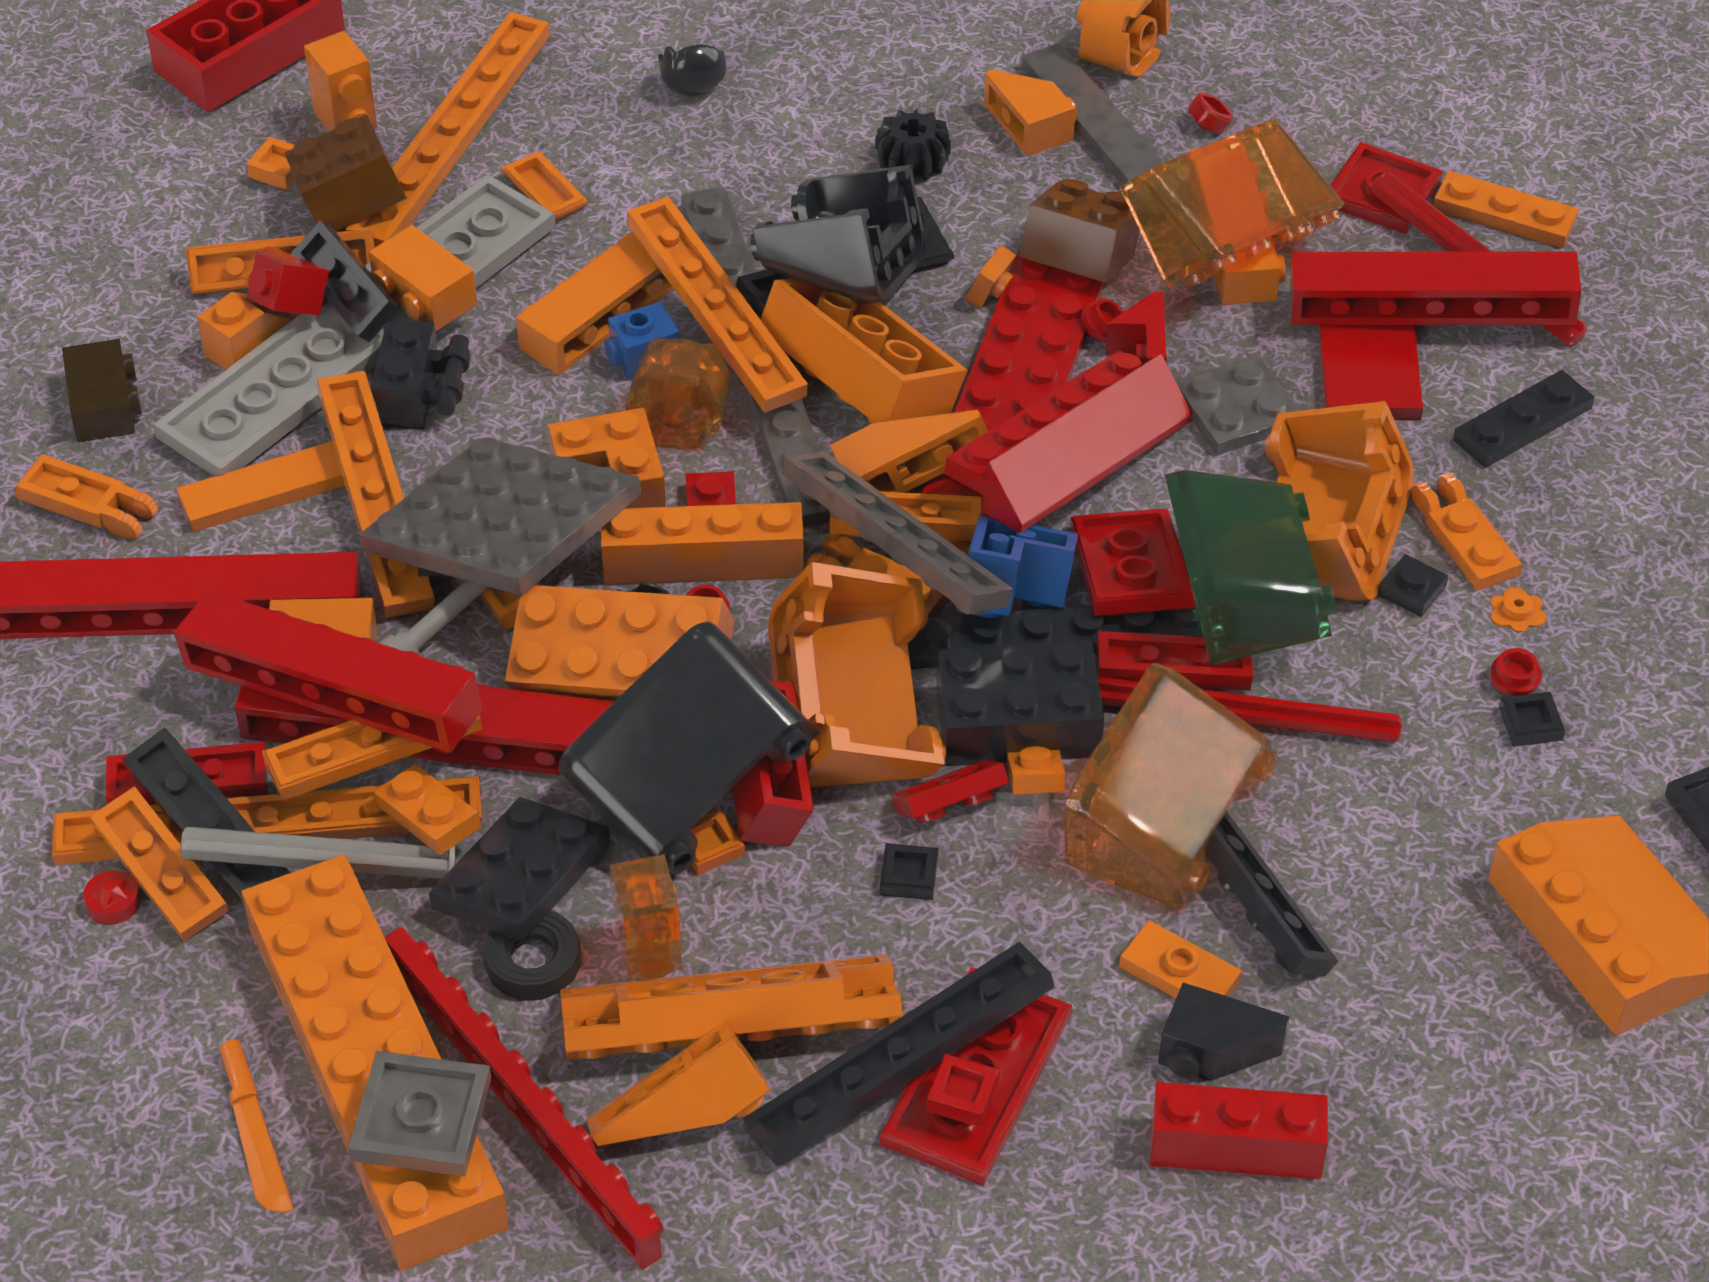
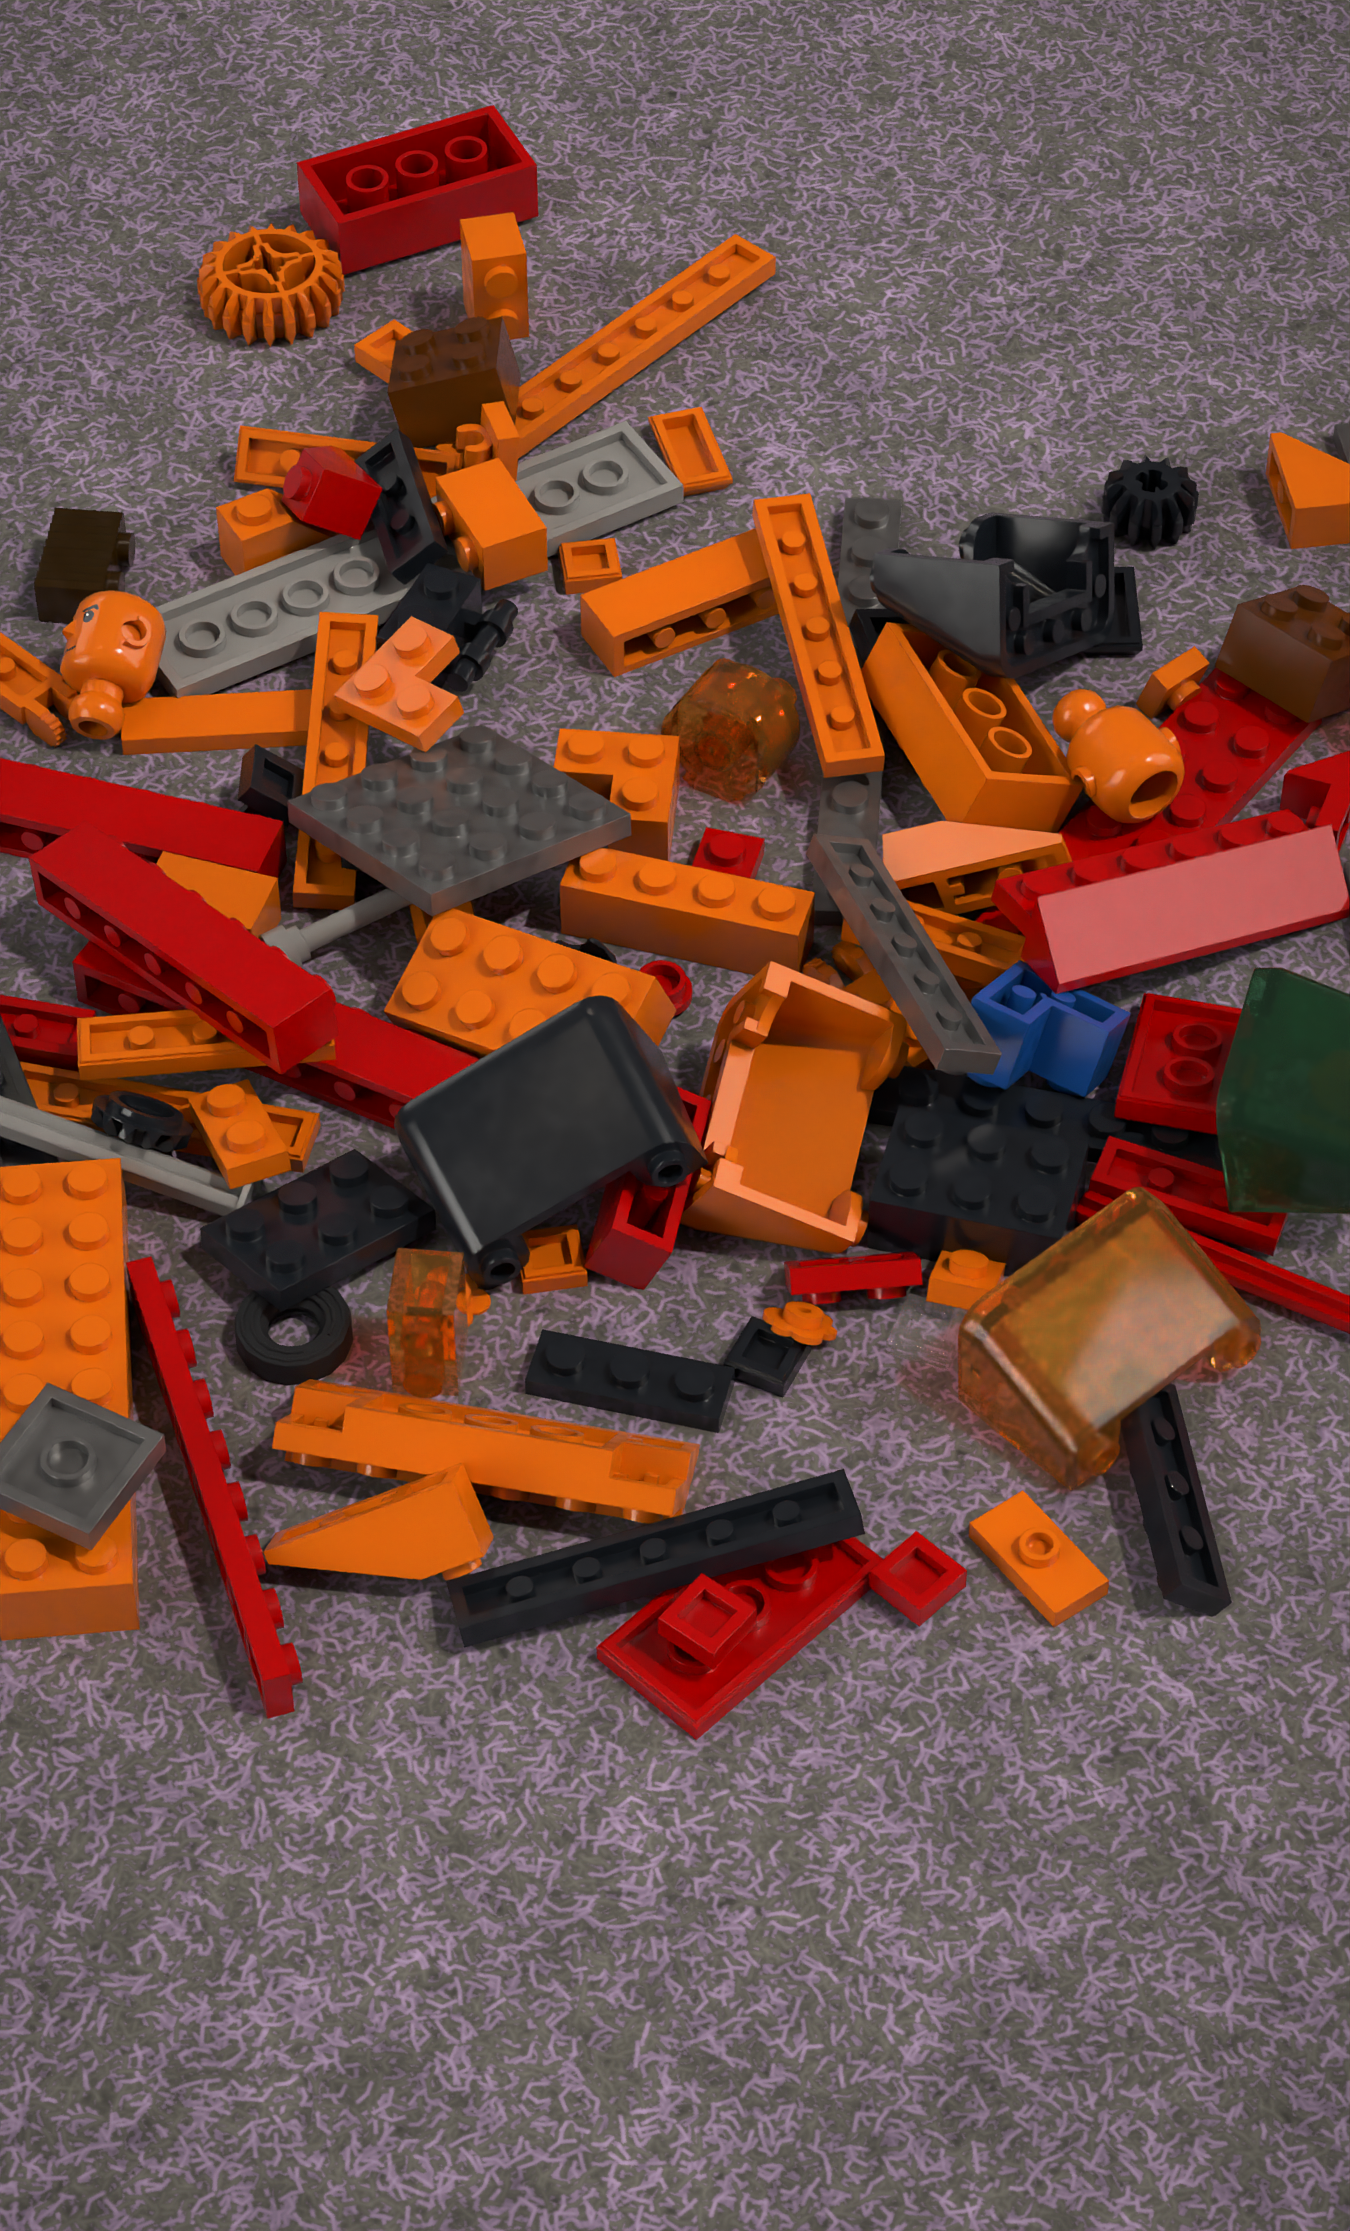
camera: 20 degrees right, 0 degrees up
(156, 131) = (270, 284): none -> orange gear
(160, 457) = (110, 659): none -> orange piece
(329, 526) = (268, 784): none -> black tile
(347, 819) = (141, 1120): none -> black gear
(395, 212) = (491, 439): none -> orange tile
(405, 421) = (396, 687): none -> orange plate
(504, 293) = (589, 564): none -> orange tile
(633, 332) = (715, 640): blue brick -> none
(692, 69) = (921, 350): black hair -> none
(812, 919) = (630, 1381): none -> black plate
(925, 837) = (801, 1321): none -> orange plant
(986, 339) = (1119, 756): none -> orange piece
(1097, 317) = (1282, 758): red plate -> none
(1100, 1010) = (917, 1578): none -> red plate
(1218, 1034) = (1042, 1646): black slope -> none
(1239, 1130) = (1015, 1762): red brick -> none

